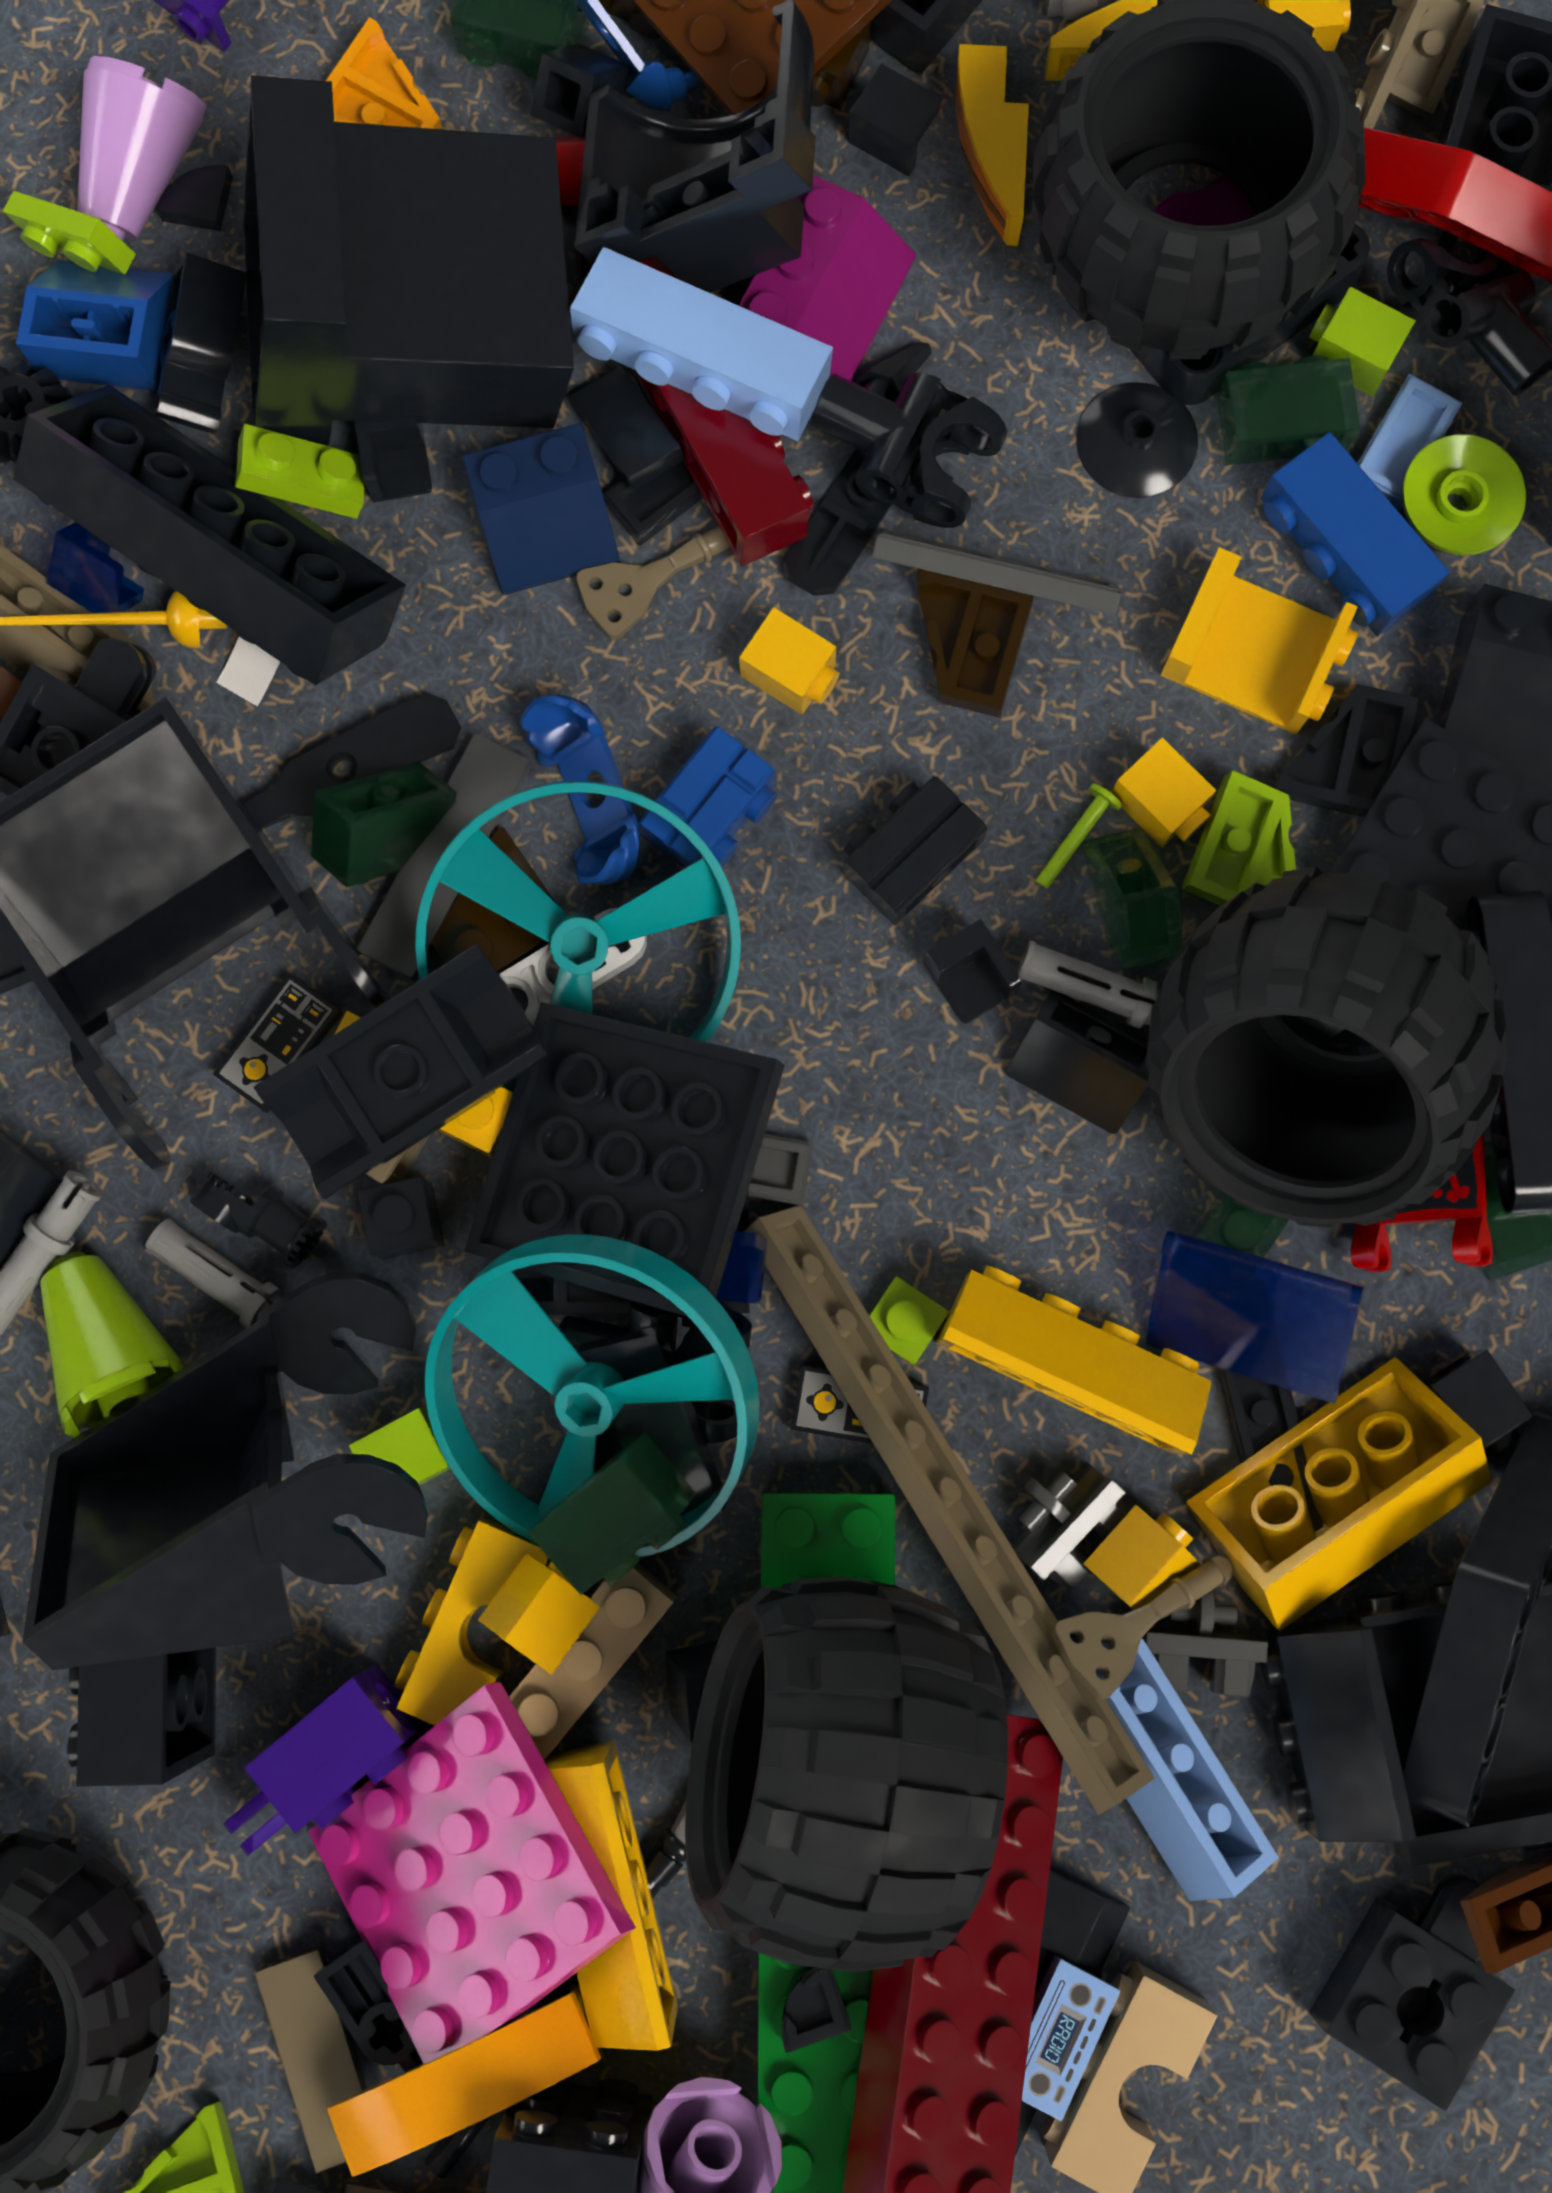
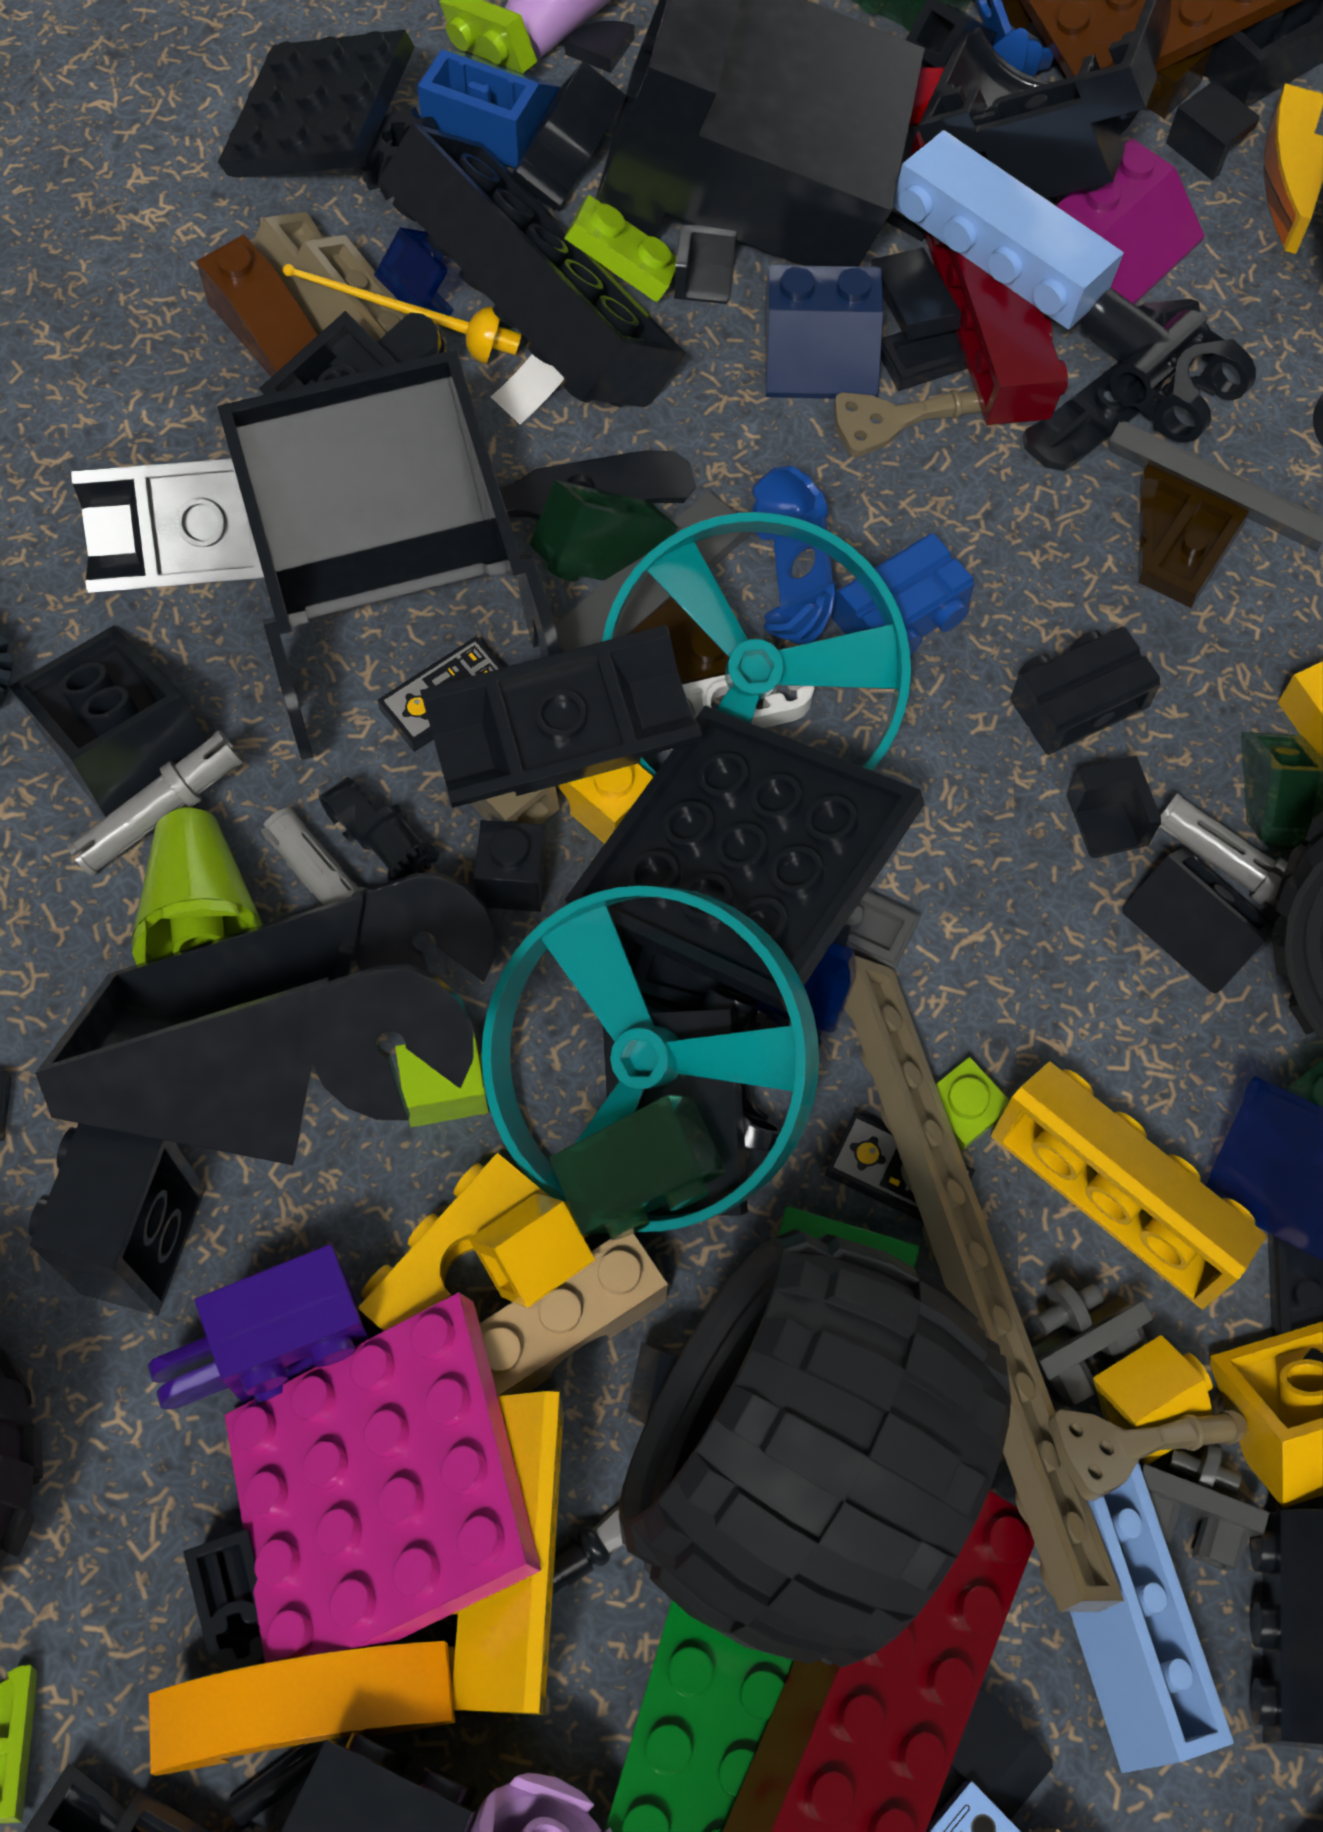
camera: 10 degrees right, 15 degrees down
(312, 2048) = (151, 1641): dark tan tile -> none
(790, 662) = (1010, 507): yellow brick -> none
(813, 2010) = (697, 1738): black tile -> none
(1102, 800) = (1272, 698): lime pin -> none

